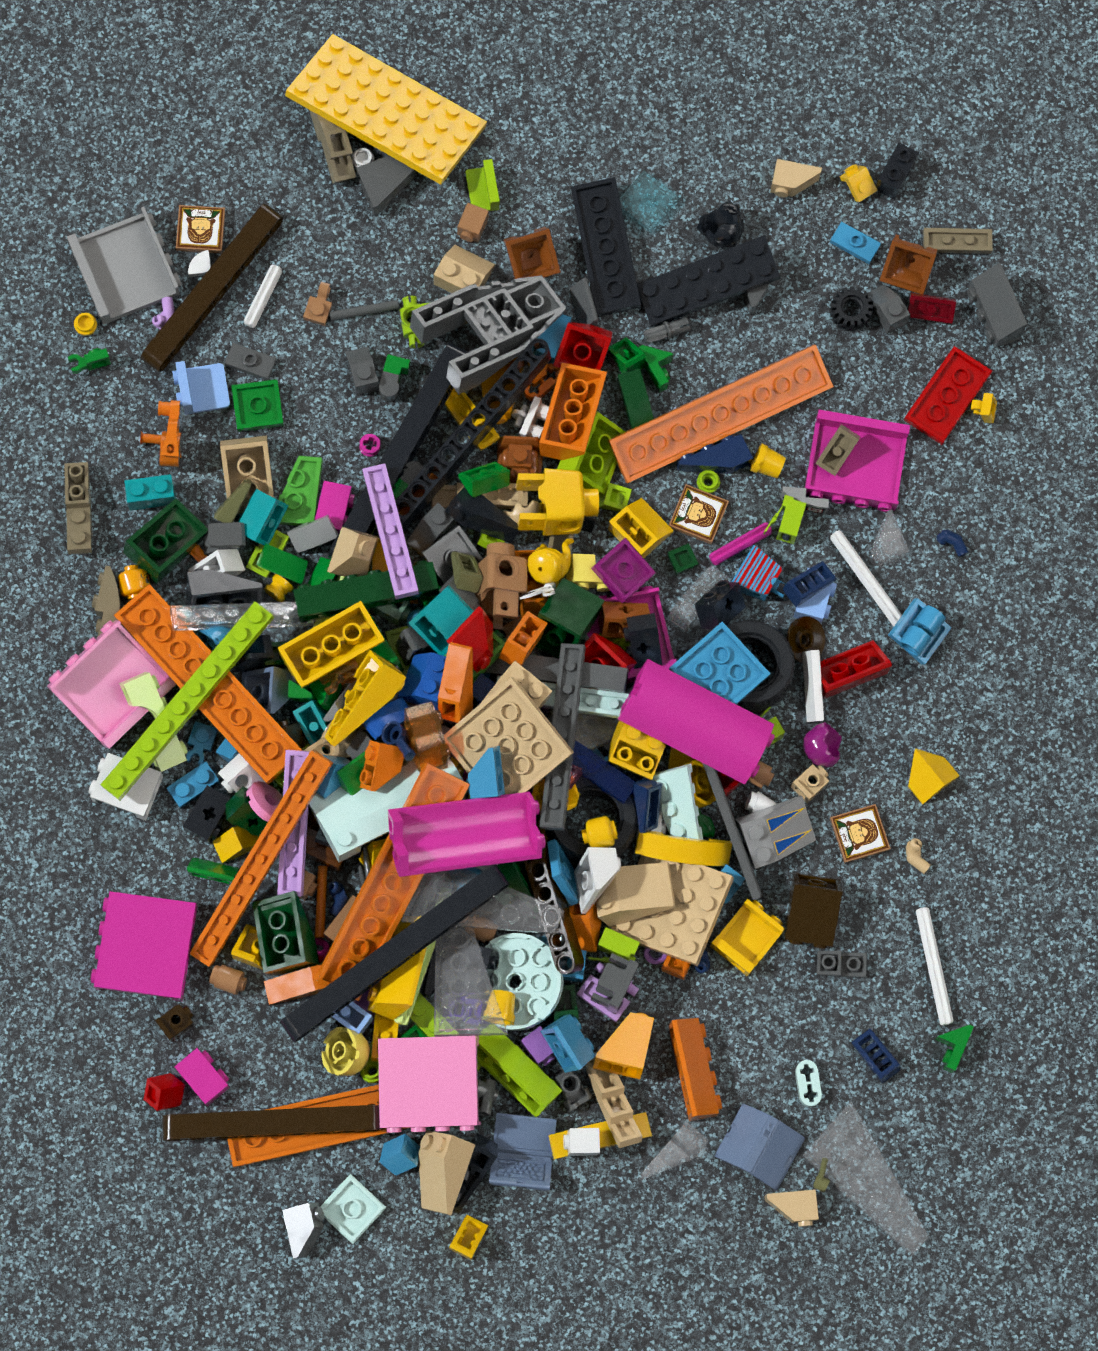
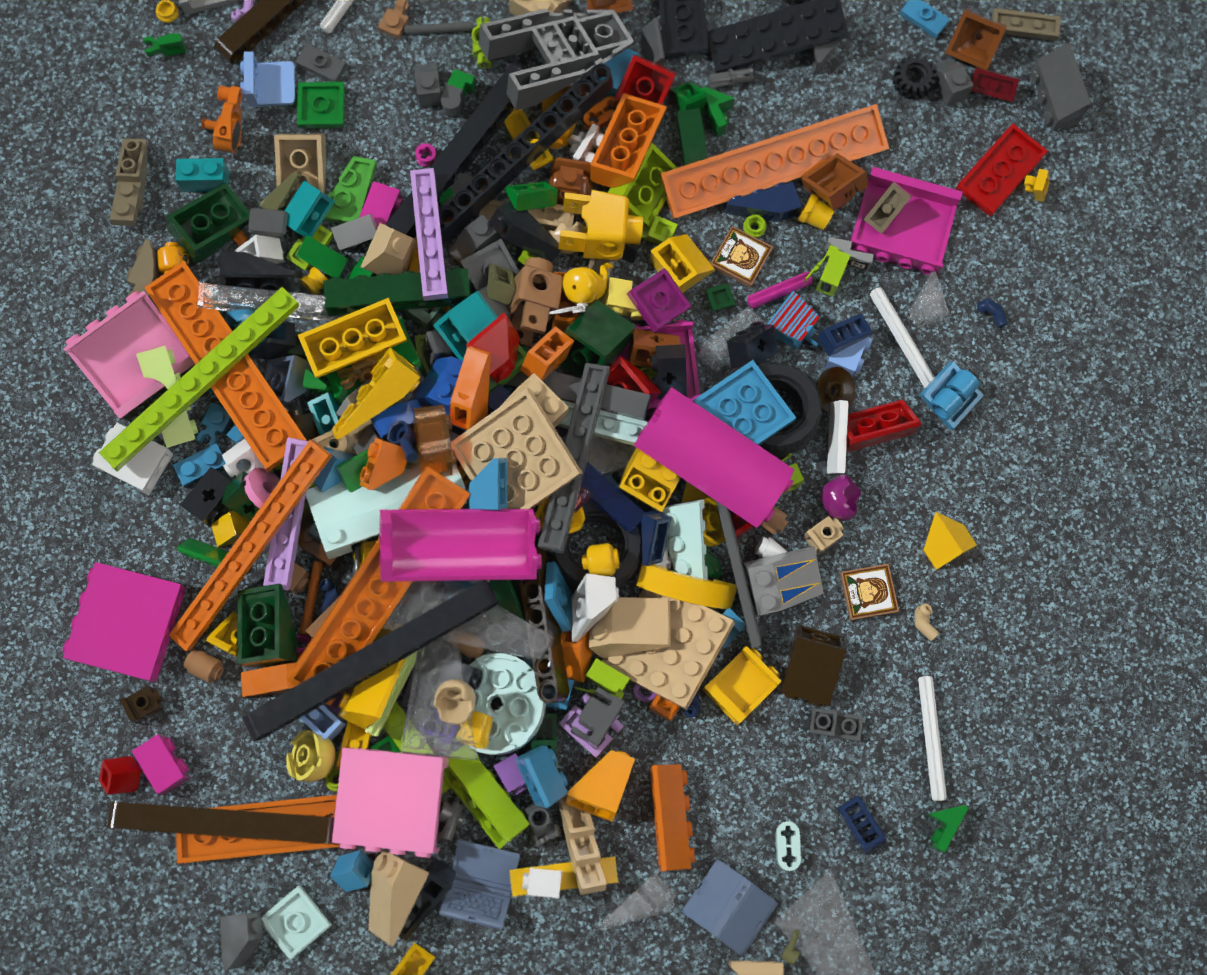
camera: 10 degrees right, 0 degrees up
(481, 981) = (455, 701): none -> tan hair
(783, 428) = (836, 181): none -> dark orange brick

